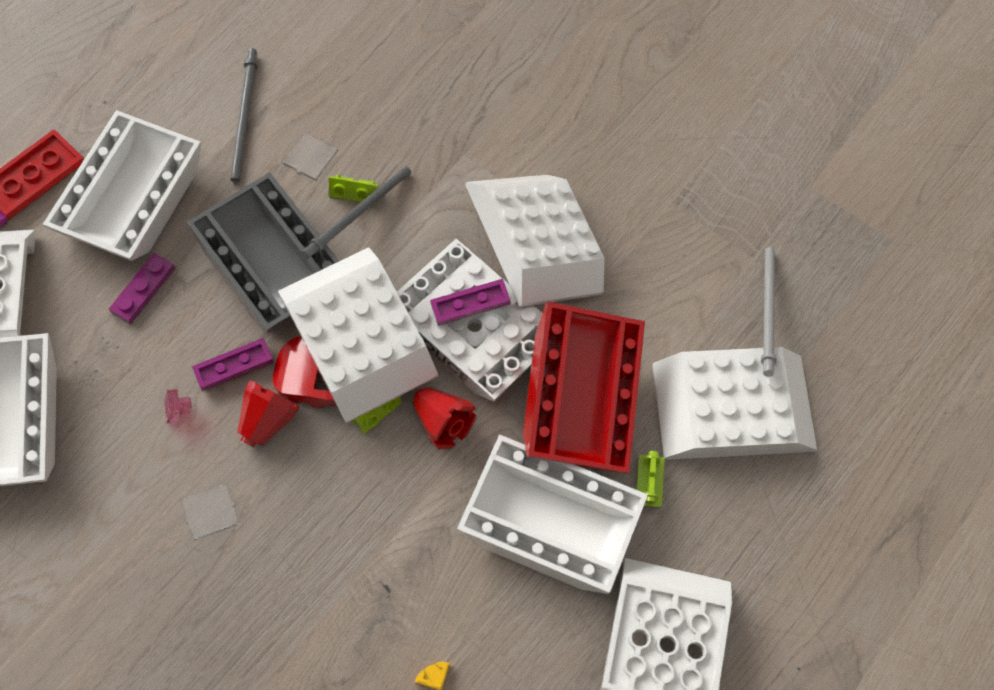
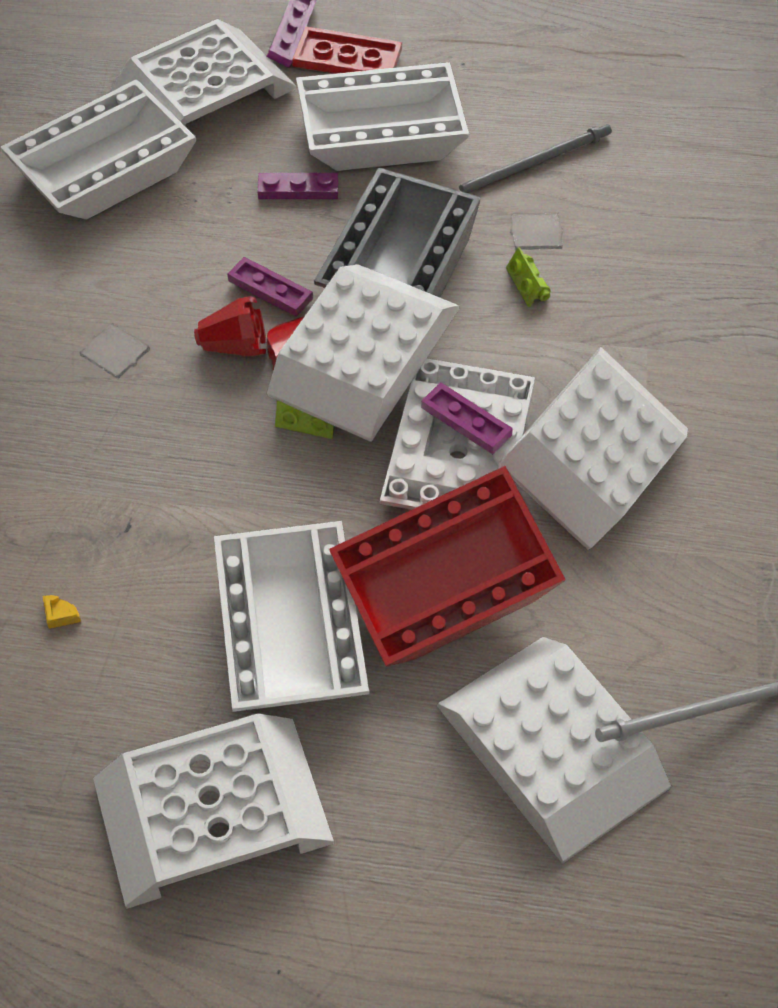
camera: 60 degrees right, 10 degrees down
(175, 406) = (197, 267): clear pink tile -> none
(316, 245) = (430, 267): dark grey bar -> none
(443, 416) = (331, 474): red cone -> none
(651, 477) = (401, 701): lime hinge -> none

